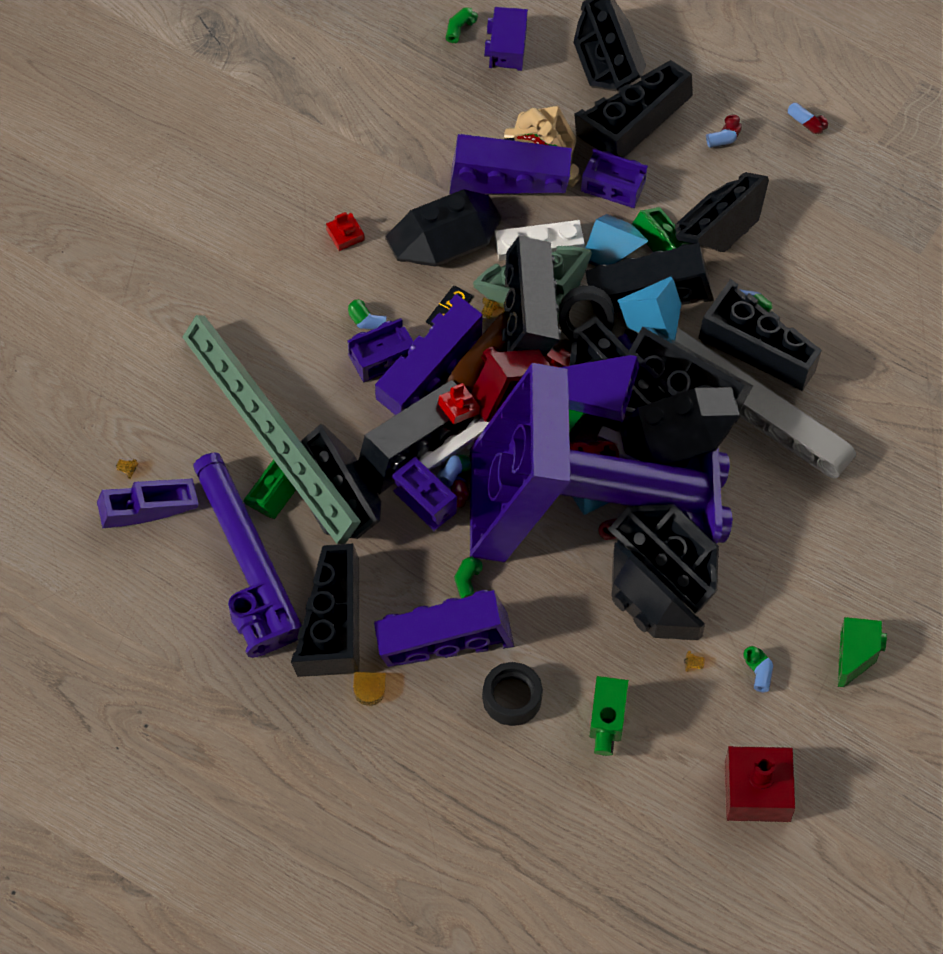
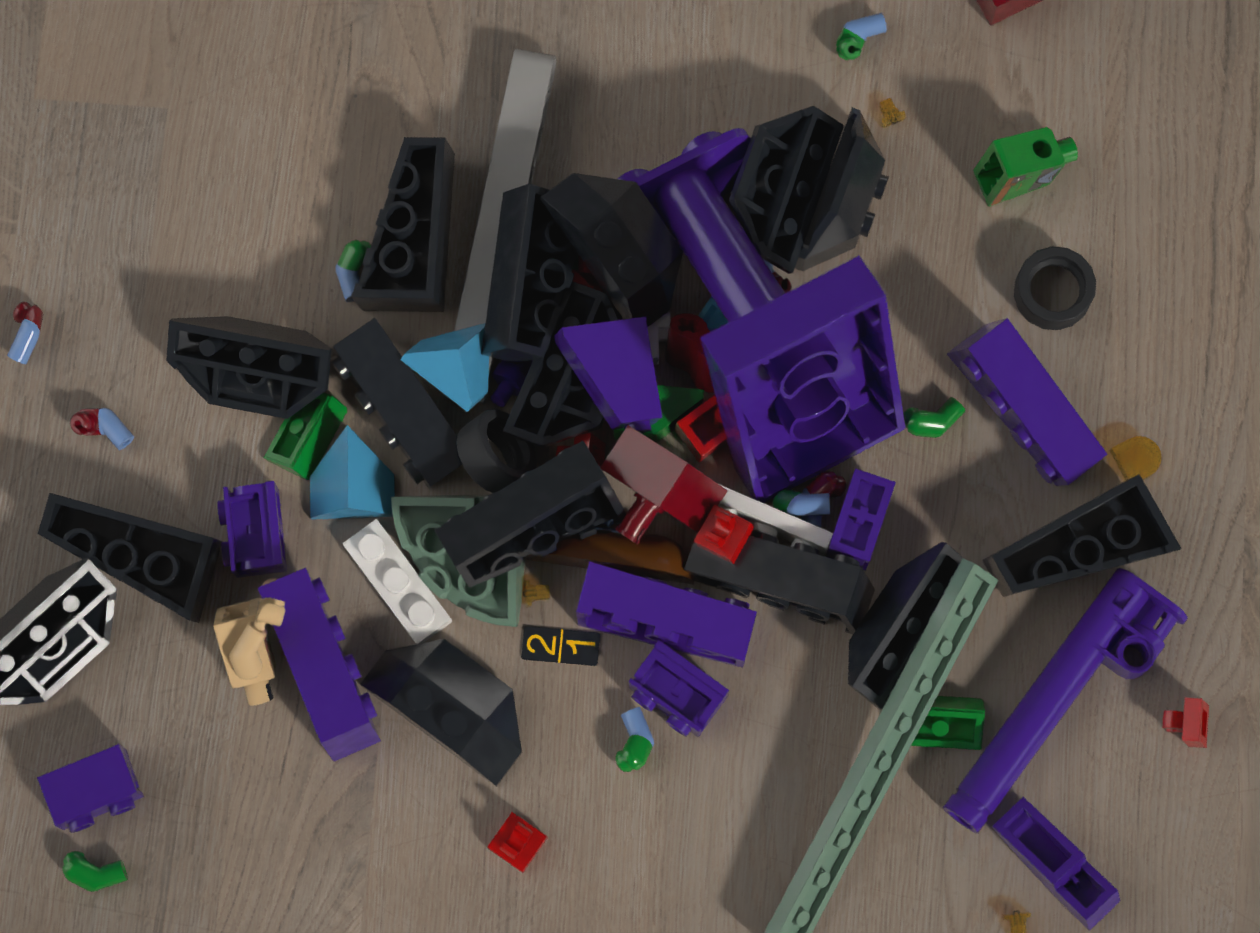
camera: 115 degrees left, 15 degrees up
(181, 621) = (1191, 722): none -> red tile

